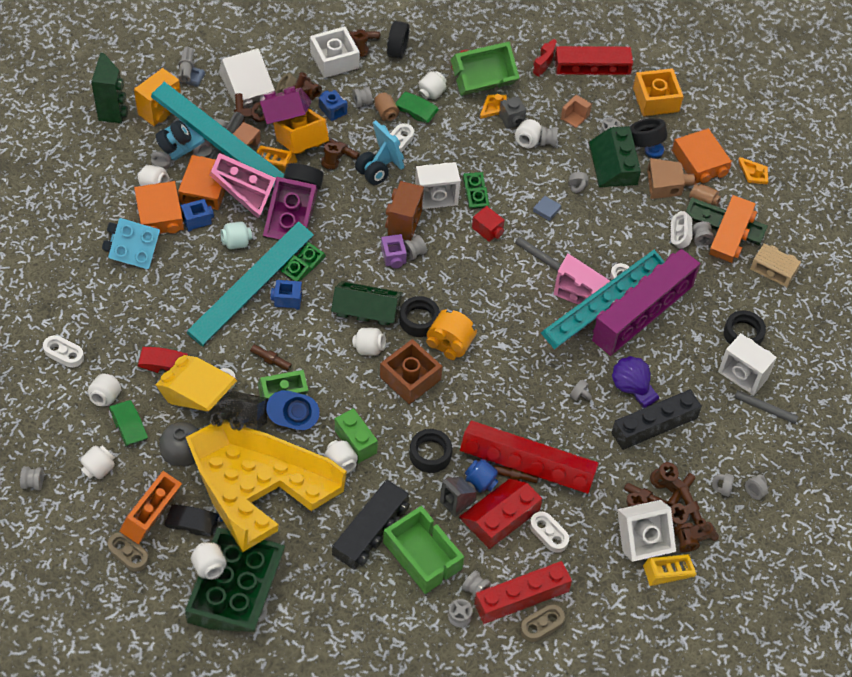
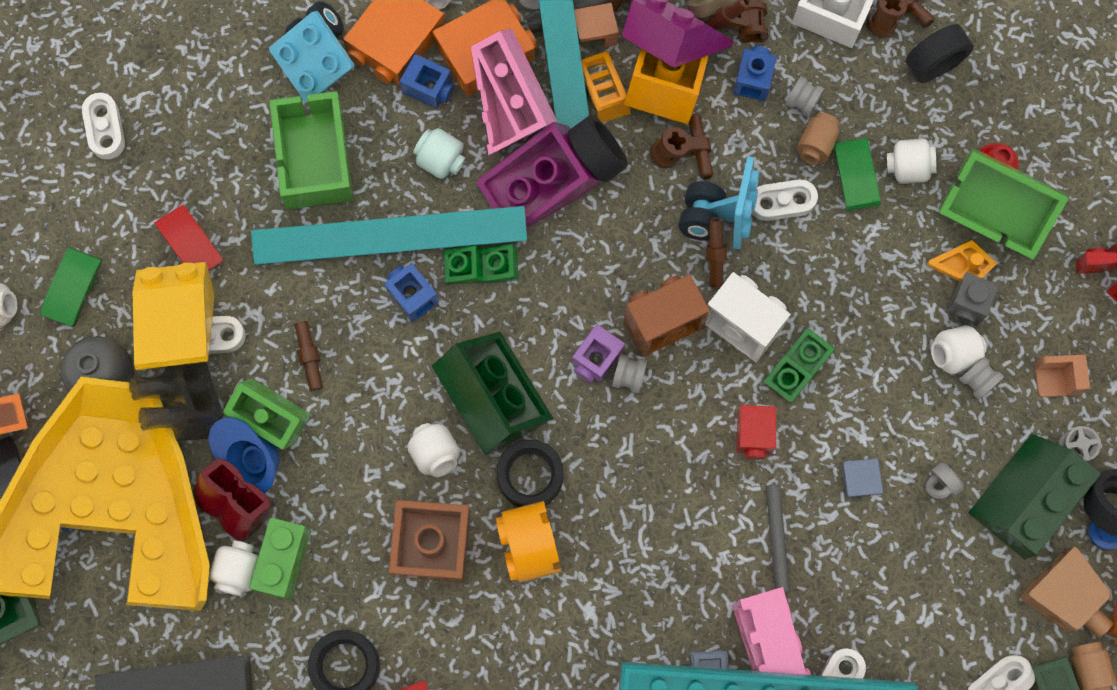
camera: 50 degrees right, 20 degrees up
(104, 390) = (89, 219): white head -> none
(178, 277) = (311, 151): none -> bright green piece
(308, 431) = (226, 496): none -> dark red brick
(396, 174) = (716, 251): none -> reddish brown bar

